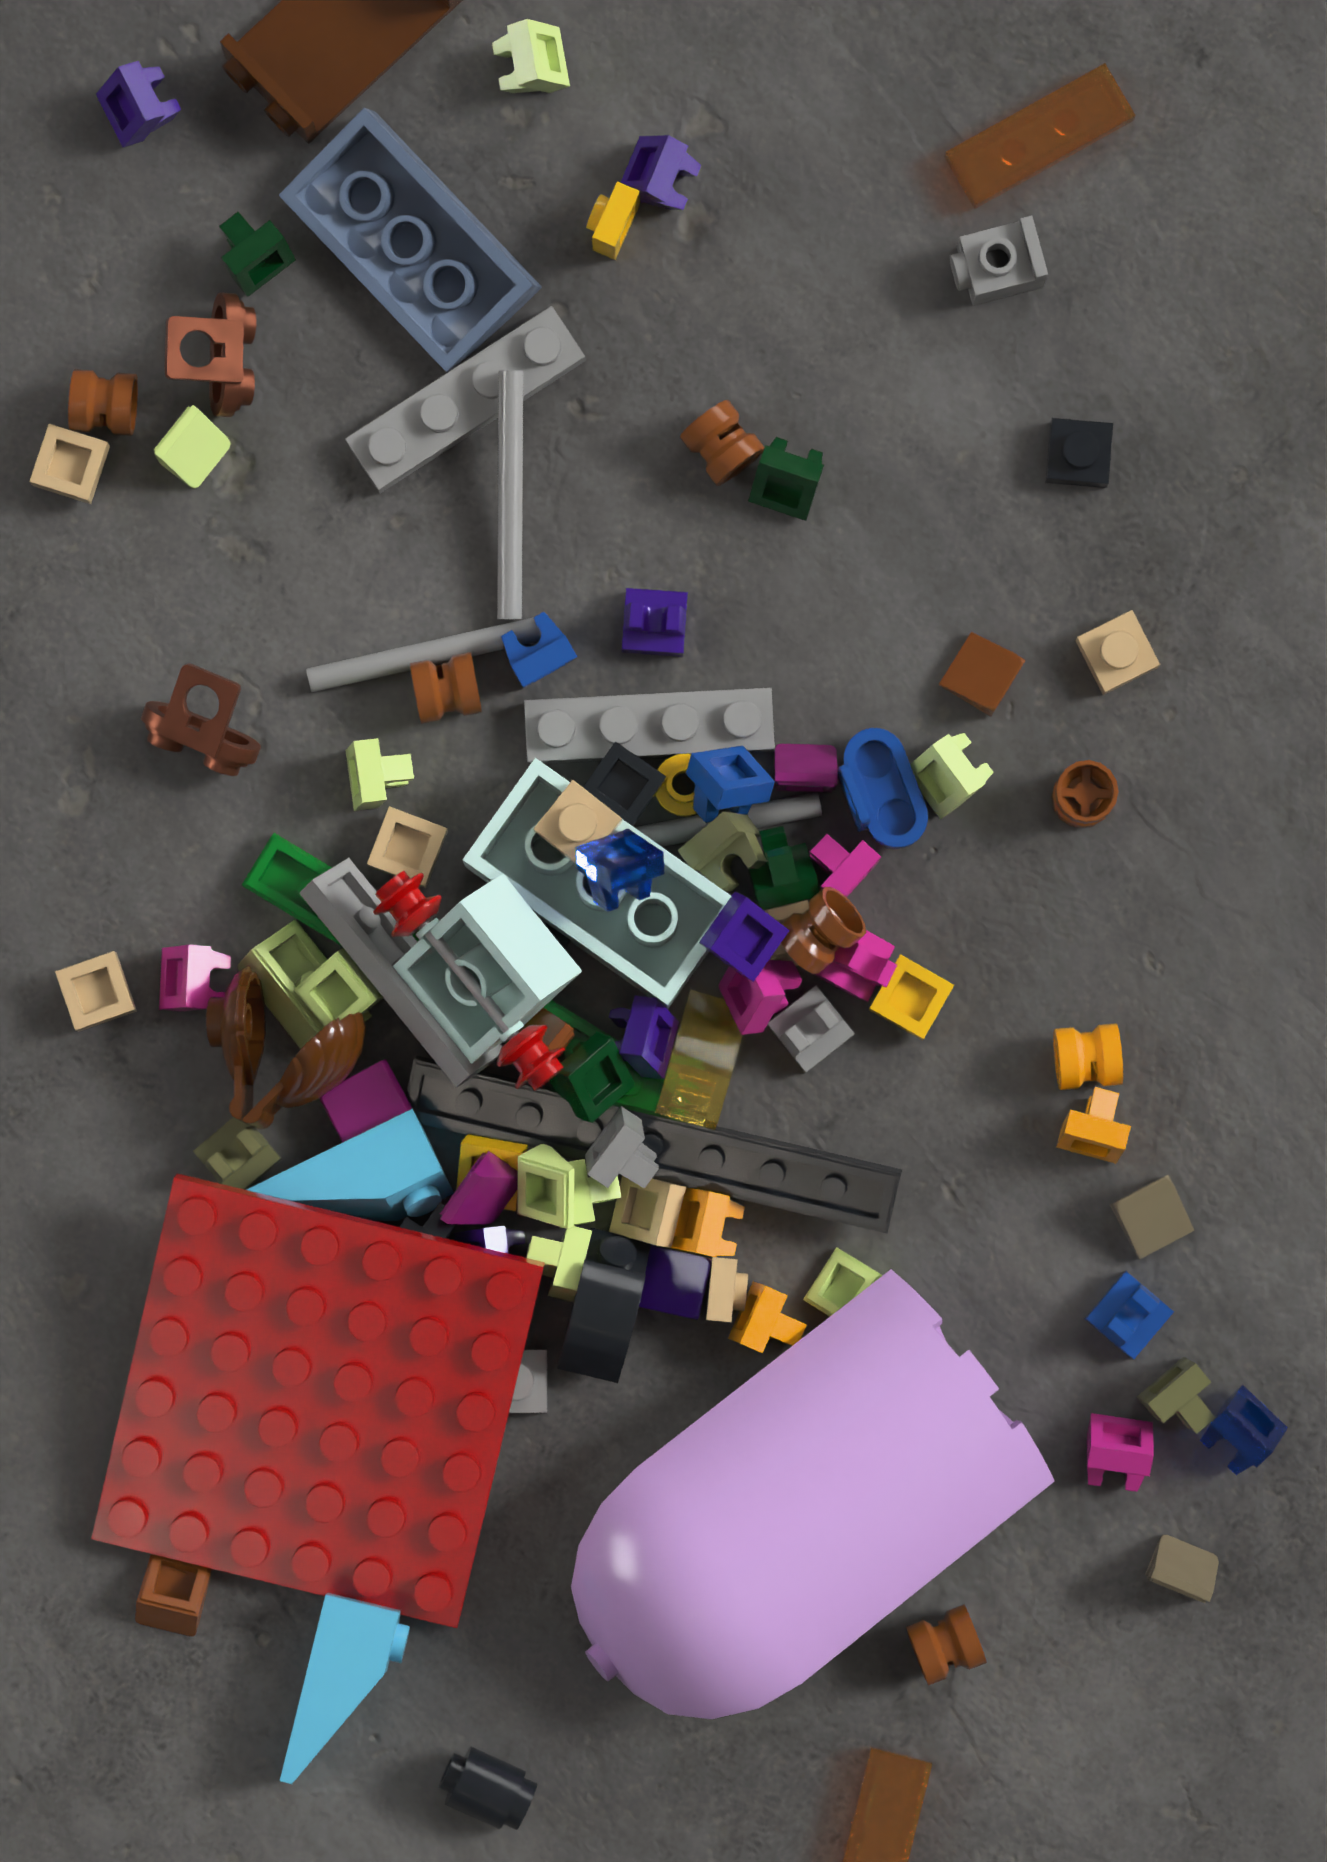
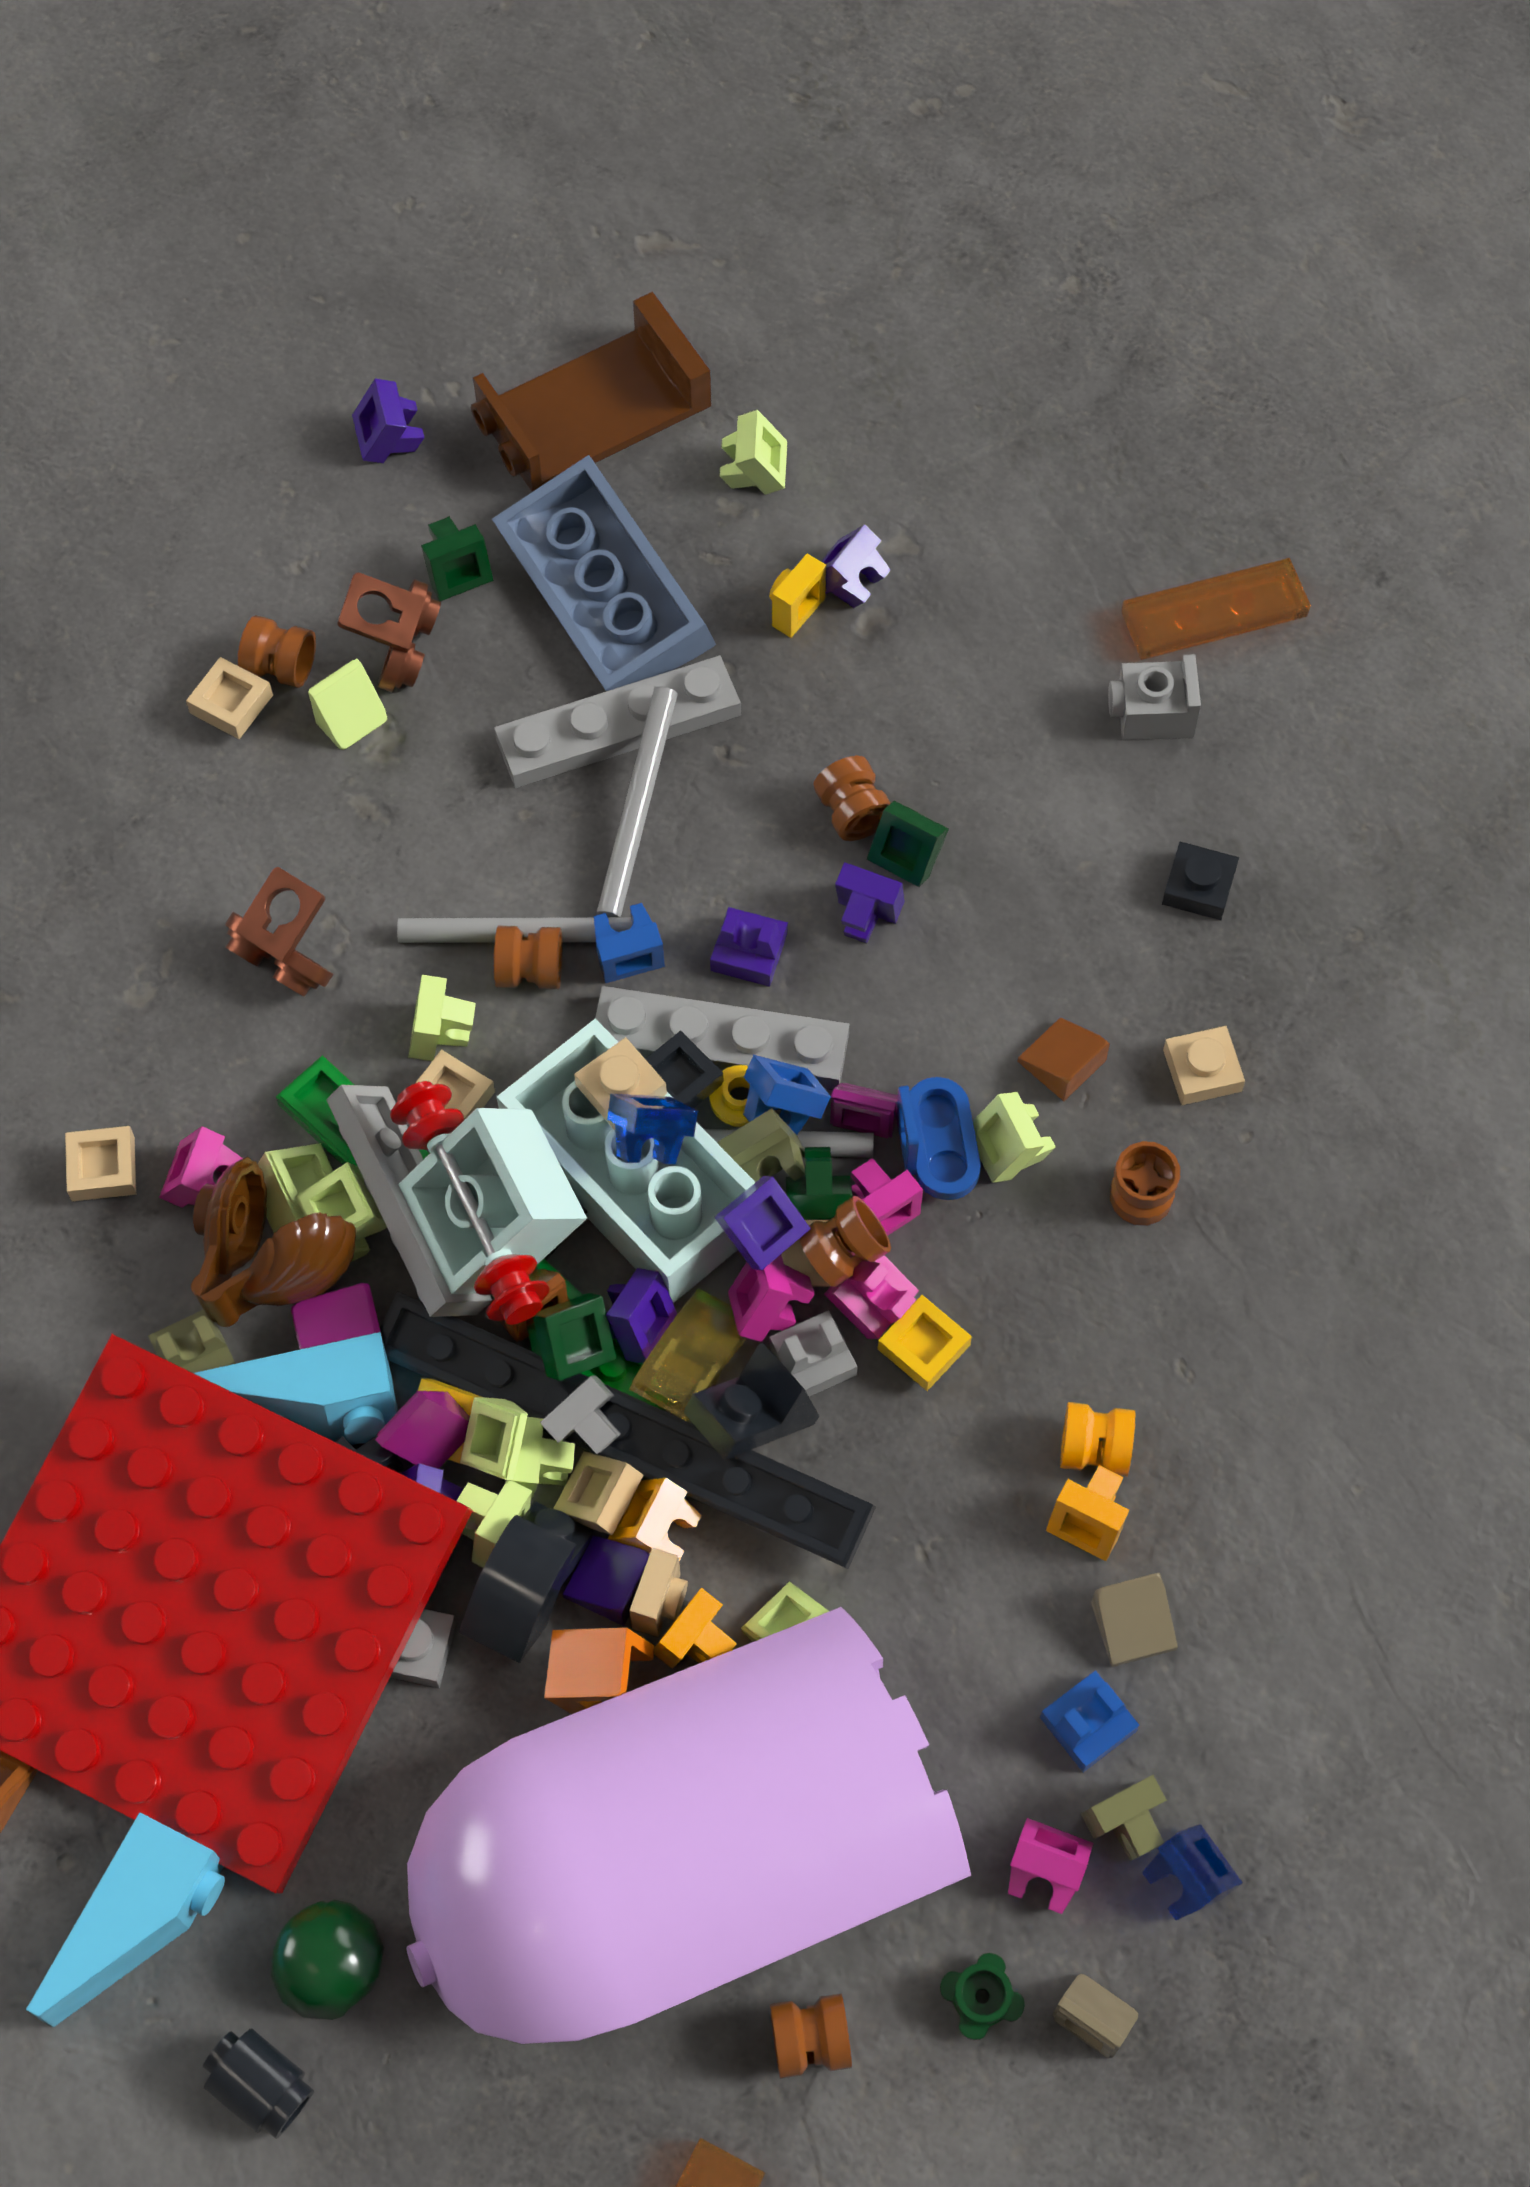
camera: 15 degrees right, 20 degrees down
(516, 1672) = (326, 1959): none -> dark green hair
(684, 1376) = (591, 1665): none -> orange panel
(760, 550) = (867, 899): none -> dark purple tile
(769, 1106) = (752, 1408): none -> black slope
(1101, 1576) = (987, 1976): none -> dark green plate

